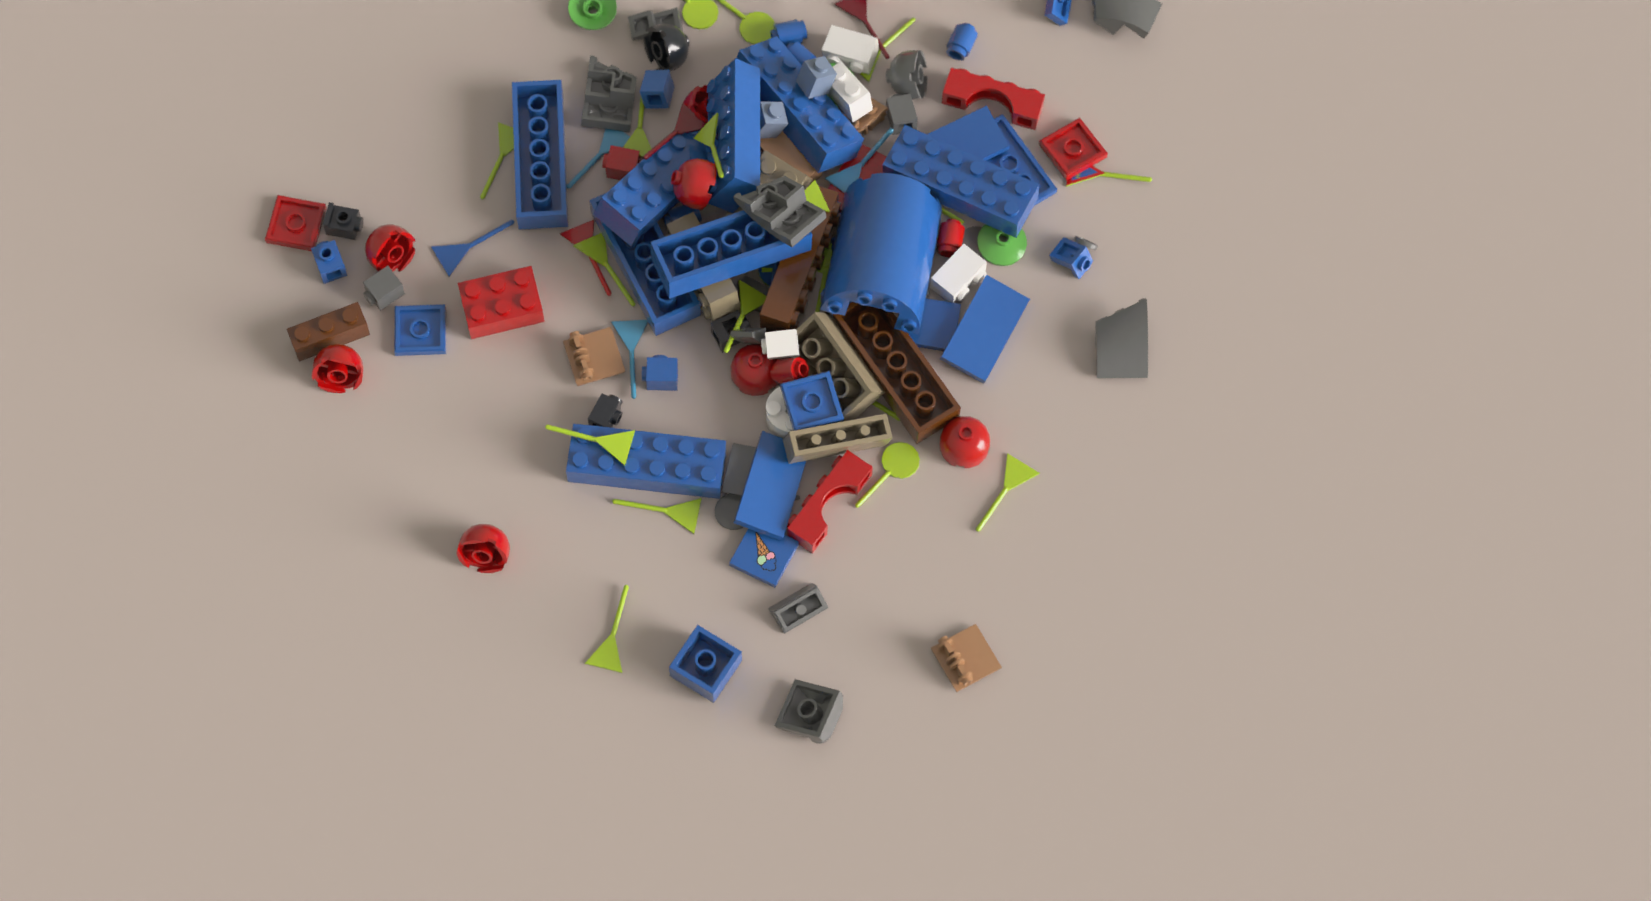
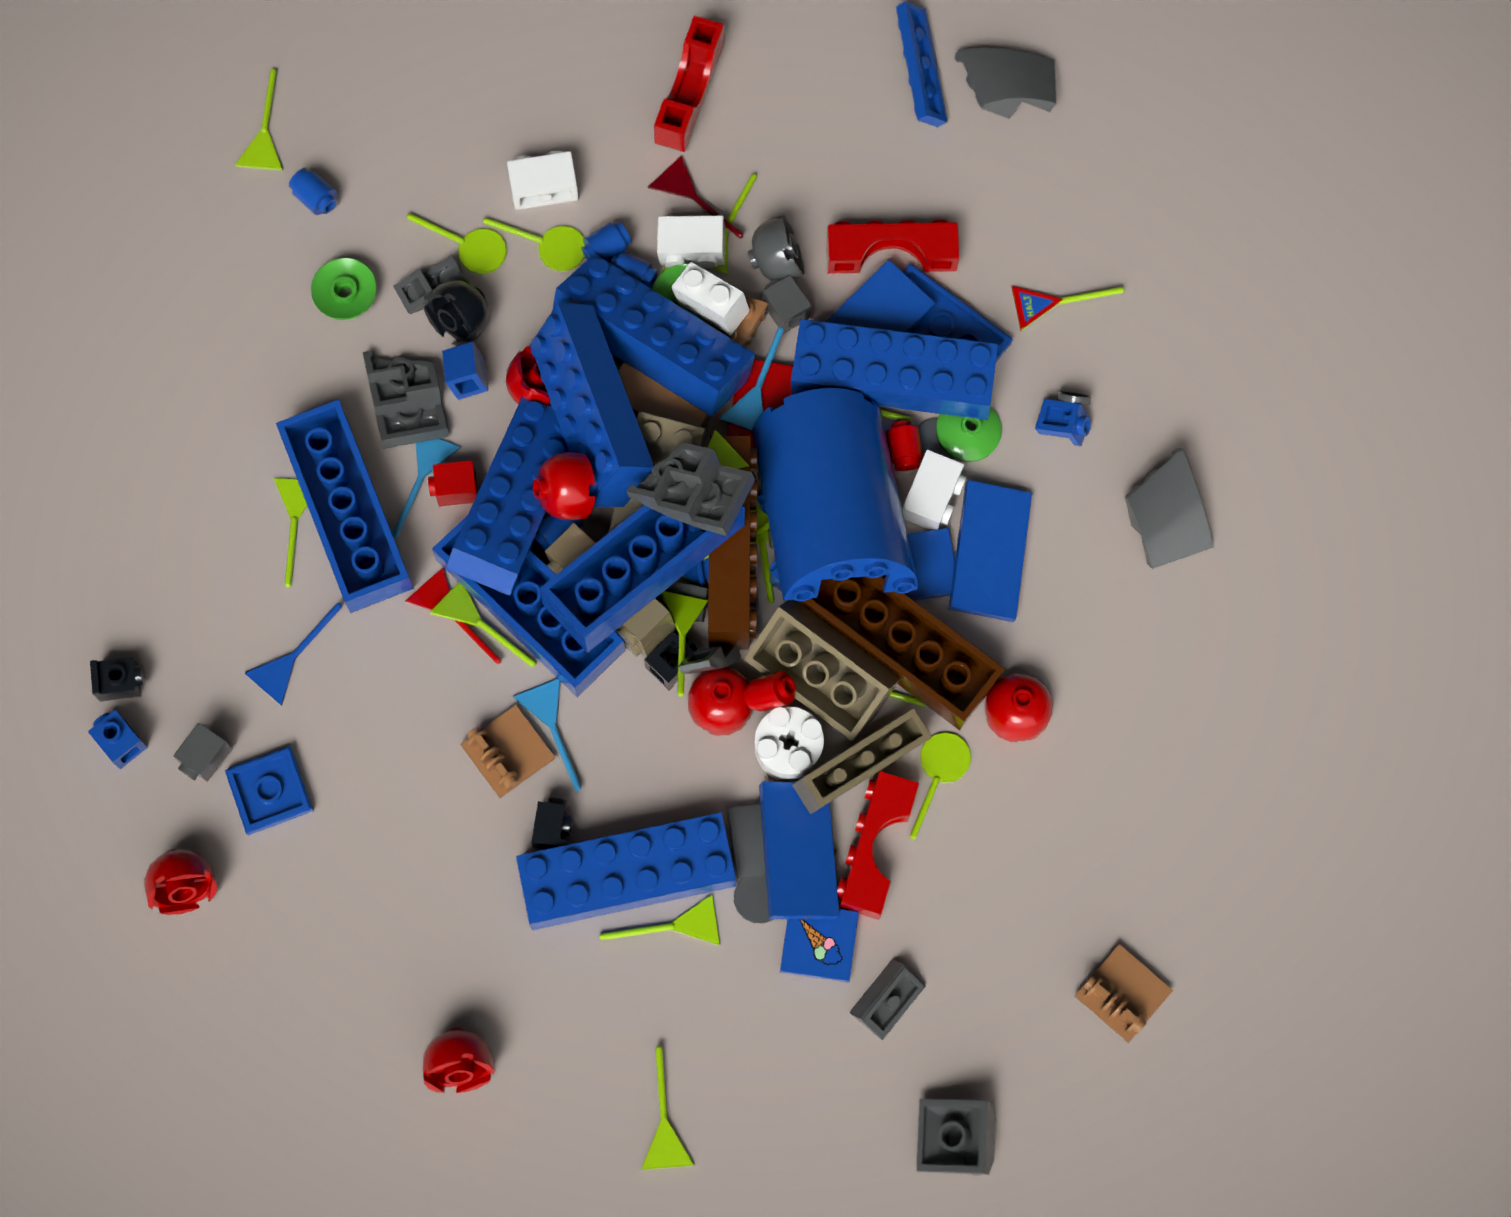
camera: 20 degrees left, 5 degrees up
(295, 223) = (55, 700): red tile -> none
(328, 329) = (148, 835): reddish brown brick -> none
(389, 247) = (191, 696): red cylinder -> none
(501, 302) = (362, 720): red brick -> none
(616, 444) = (582, 867): lime piece -> none
(638, 139) = (463, 444): lime piece -> none
(661, 373) = (602, 746): blue brick -> none
(686, 123) = (522, 407): dark red piece -> none
(705, 663) = (800, 1121): blue brick -> none
(707, 137) = (558, 417): lime piece -> none
(772, 119) = (632, 365): sand blue brick -> none
(780, 344) = (748, 662): white brick -> none
(811, 401) = (815, 726): blue tile -> none
(816, 77) = (668, 293): sand blue brick -> none
(961, 41) = (826, 186): blue brick -> none
(1015, 474) = (1095, 727): lime piece -> none
(1073, 149) = (1013, 280): red tile -> none

